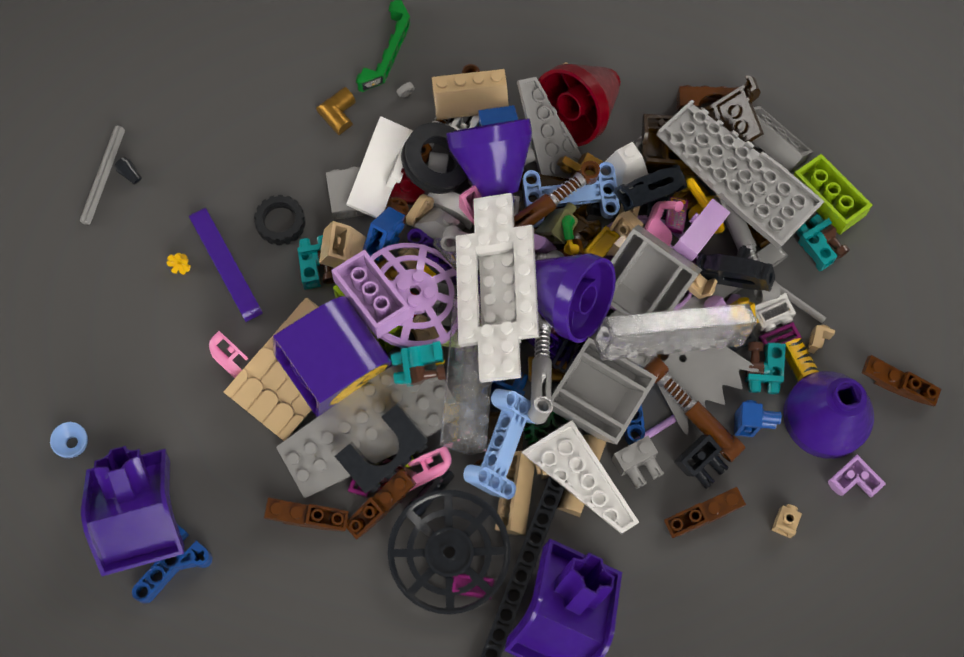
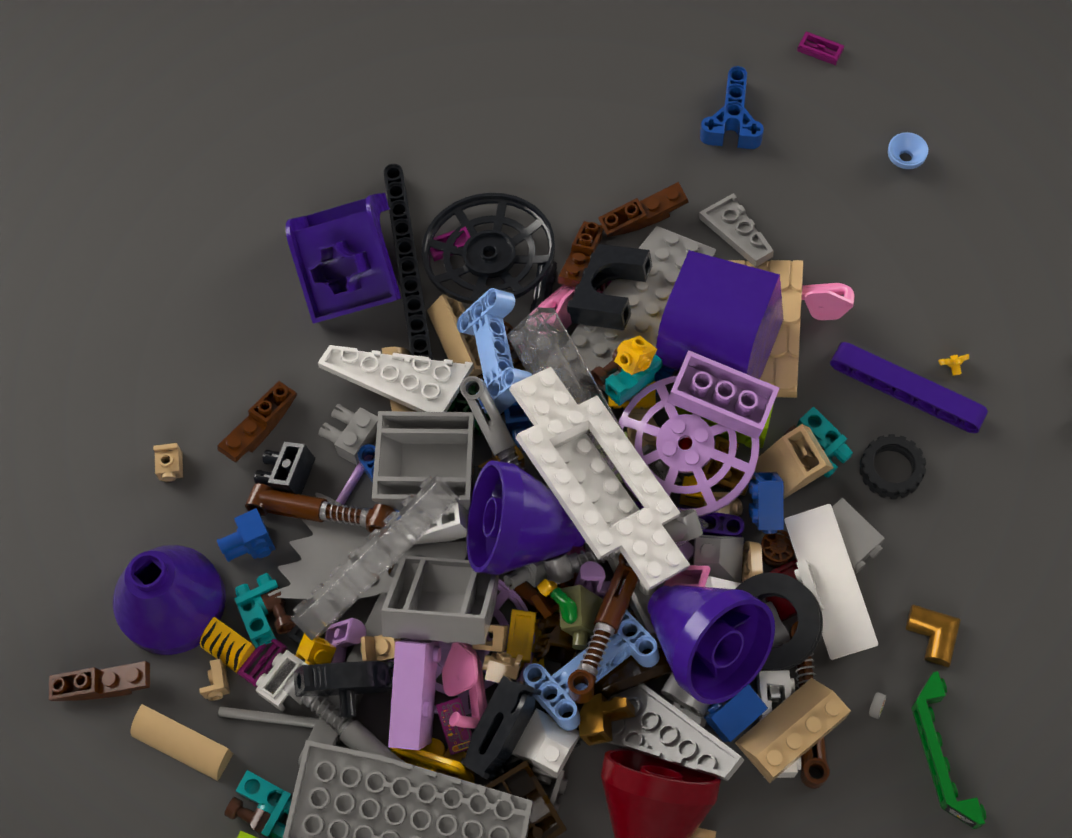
camera: 155 degrees right, 5 degrees down
(58, 599) = (819, 51): none -> magenta tile
(129, 510) = (806, 115): dark purple piece -> none
(248, 459) = (733, 225): none -> light grey wing
(412, 355) = (635, 355): none -> yellow brick
(858, 314) = (180, 742): none -> tan brick
(858, 473) = (113, 551): lavender brick -> none

